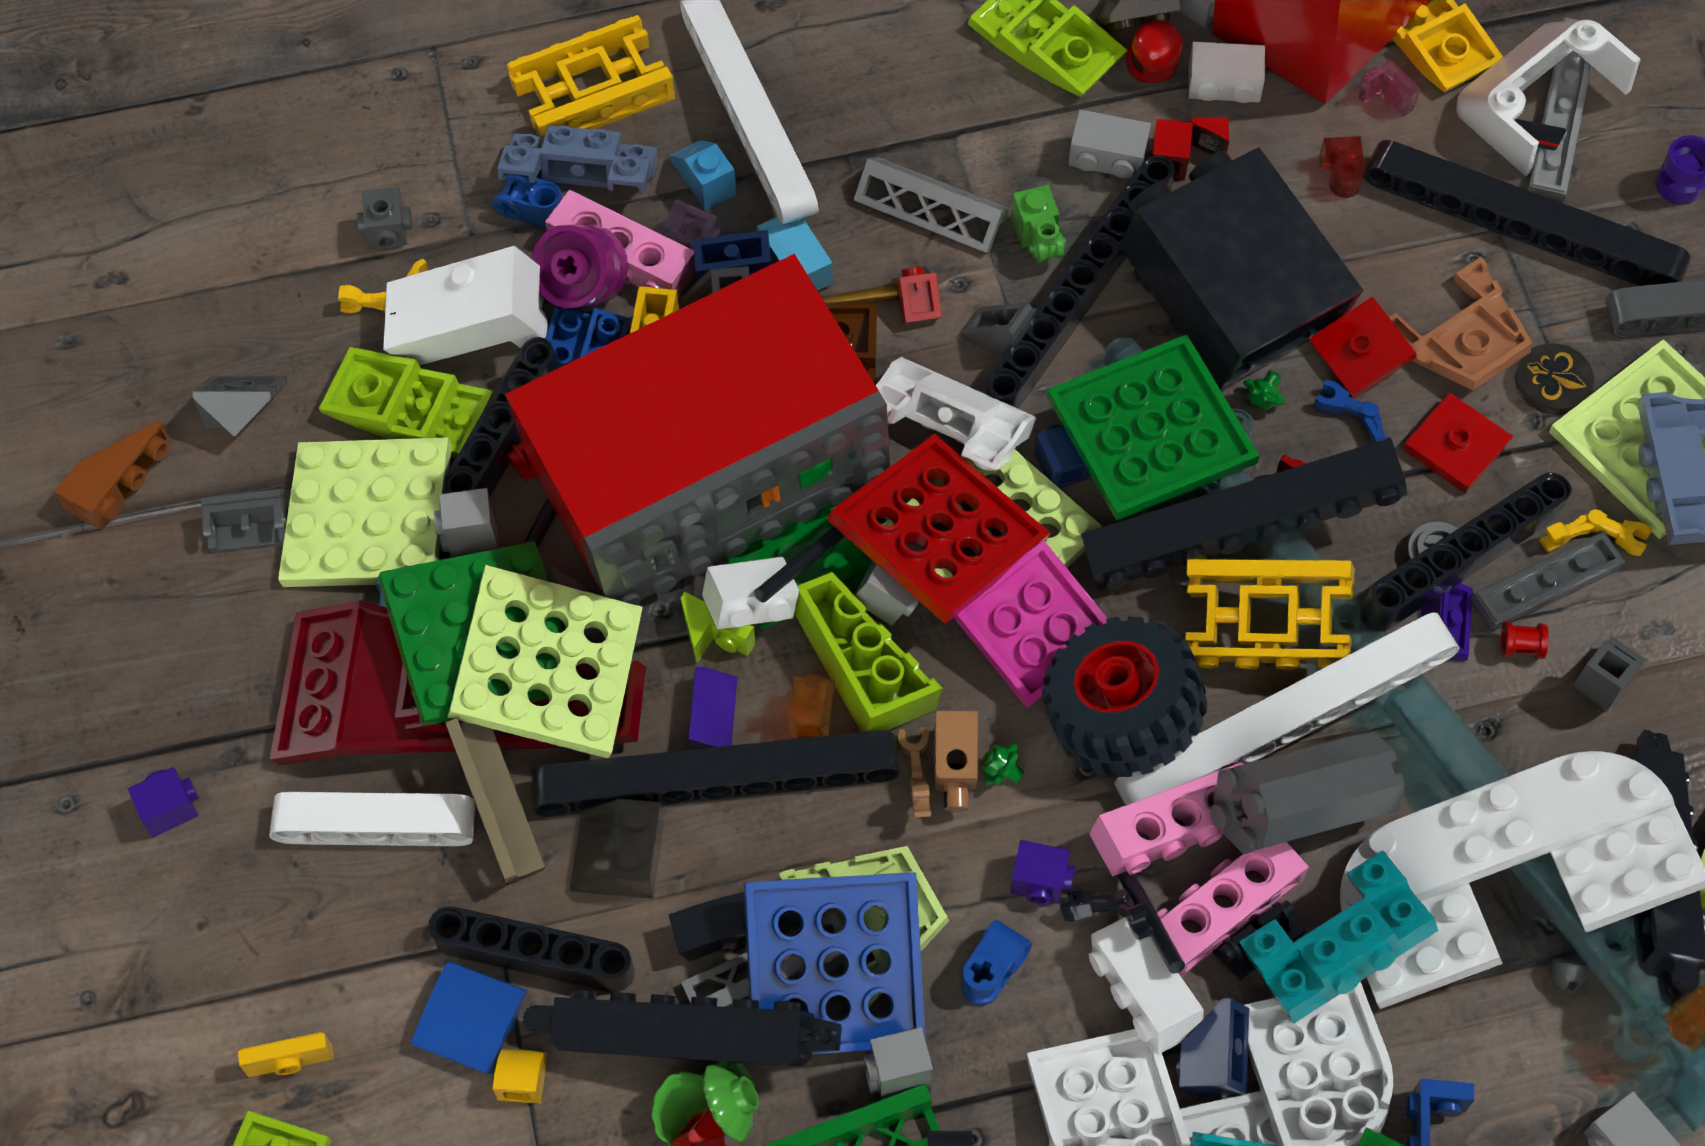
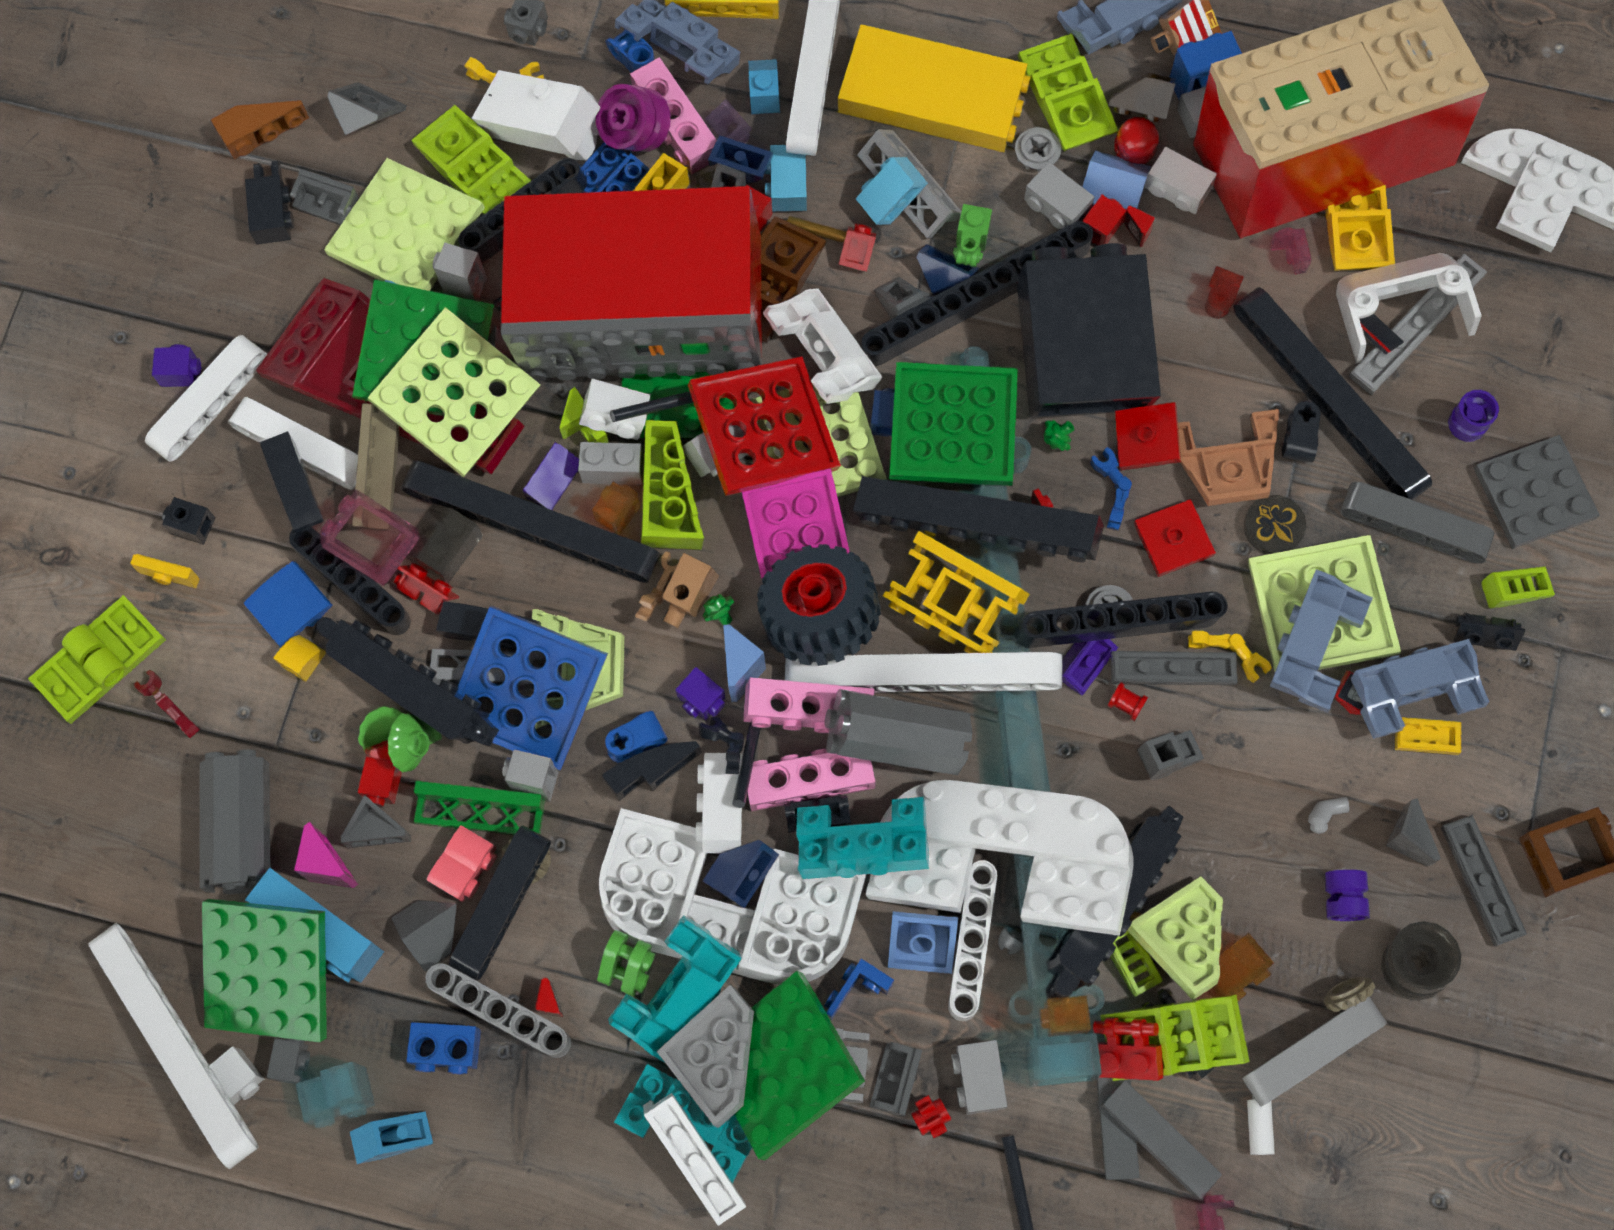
camera: 30 degrees right, 10 degrees up
(180, 562) = (268, 206): none -> black hinge
(223, 822) = (205, 398): none -> white beam
(281, 978) = (188, 520): none -> black brick
(399, 862) = (291, 481): none -> black slope
(573, 890) = (393, 556): none -> clear pink window
(614, 912) = (416, 580): none -> red hinge
(775, 659) = (611, 462): none -> light grey brick
(898, 93) = (933, 88): none -> yellow brick
(921, 214) = (891, 190): none -> medium azure brick
(1027, 278) = (941, 269): none -> dark blue slope
(1031, 988) = (650, 767): none -> black slope
(1044, 97) = (1040, 138): none -> light grey gear
(1066, 806) = (742, 661): none -> medium blue slope
(1157, 99) = (1115, 179): none -> medium blue slope
(1472, 1025) = (922, 942): none -> medium blue slope
(1522, 268) = (1302, 437): none -> black piece
(1528, 1014) = (972, 956): none -> white beam

